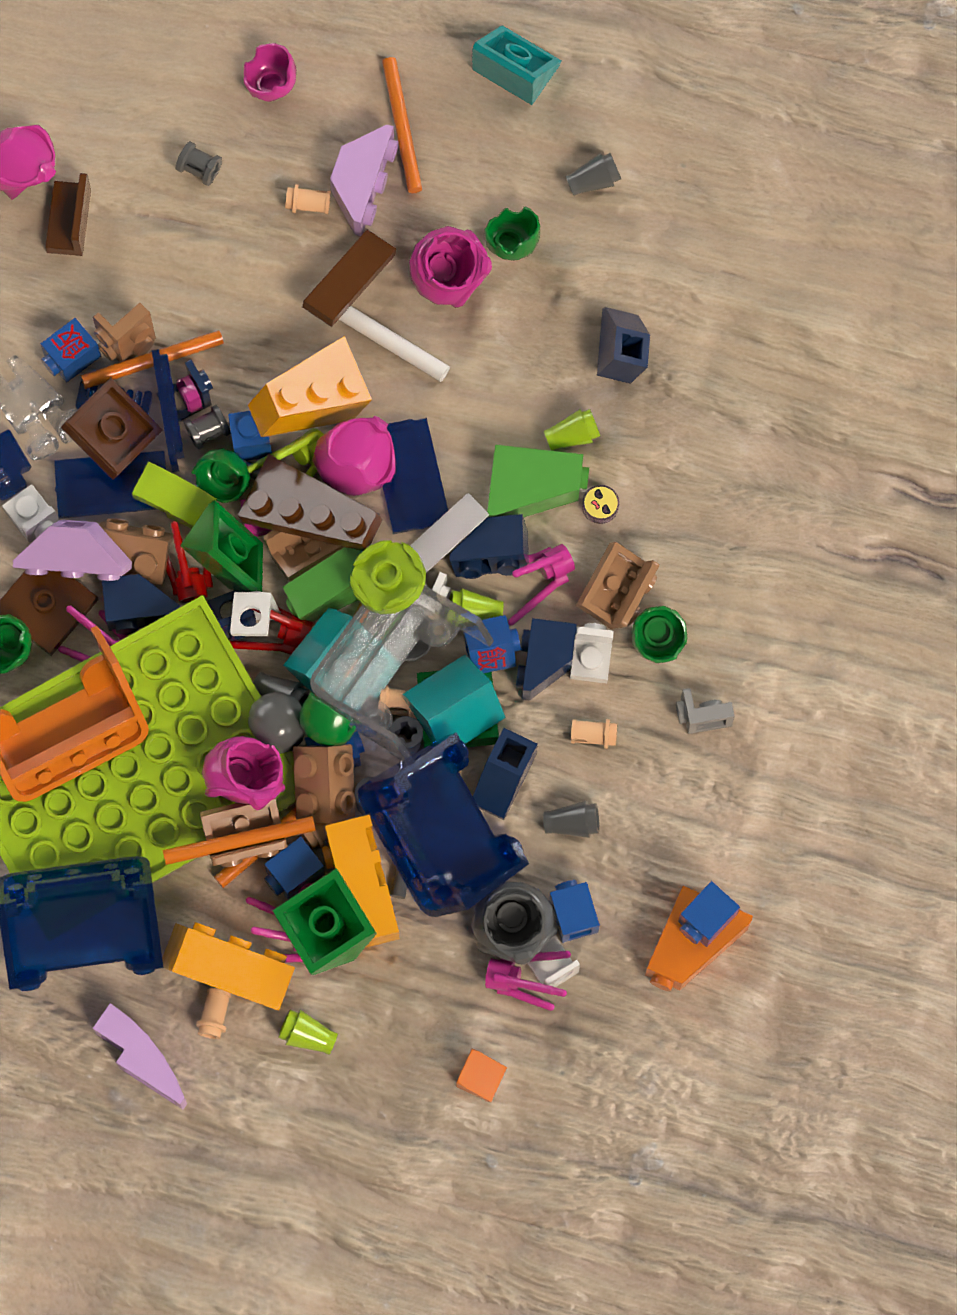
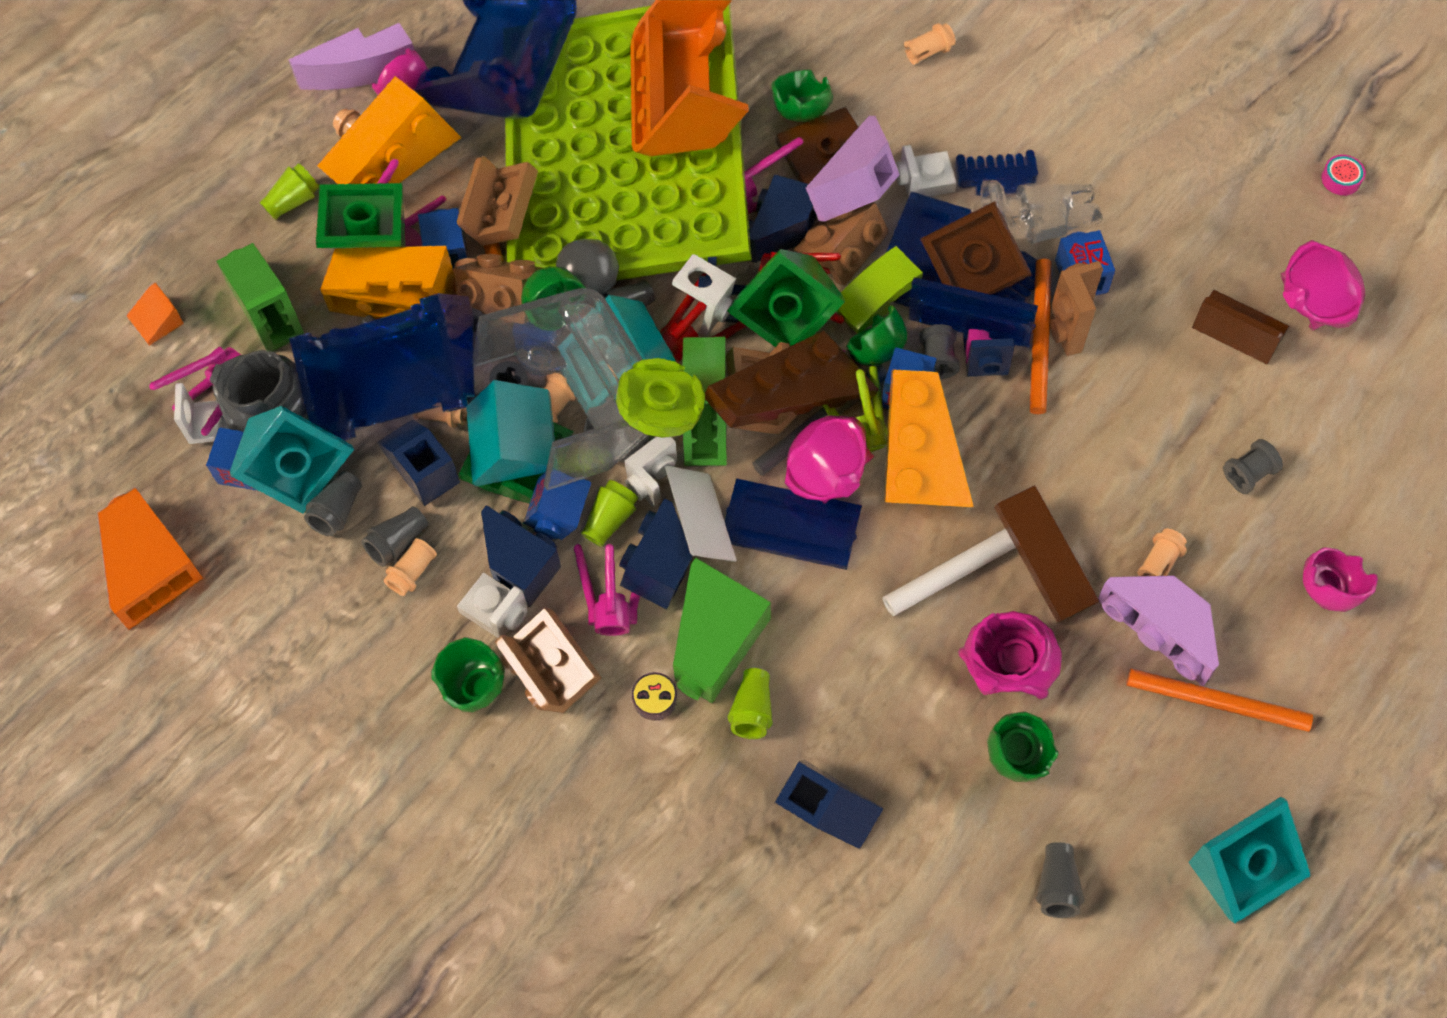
camera: 120 degrees right, 10 degrees down
(146, 1000) = (405, 67): none -> dark pink hair
(239, 840) = (488, 190): orange bar -> none
(244, 771) = (543, 208): dark pink helmet -> none
(423, 987) = (260, 296): none -> bright green slope
(562, 863) = (288, 457): none -> teal slope
(575, 757) = (391, 538): none -> dark grey cone
(707, 915) = (135, 558): blue brick -> none
(708, 717) = (354, 683): light grey bracket -> none

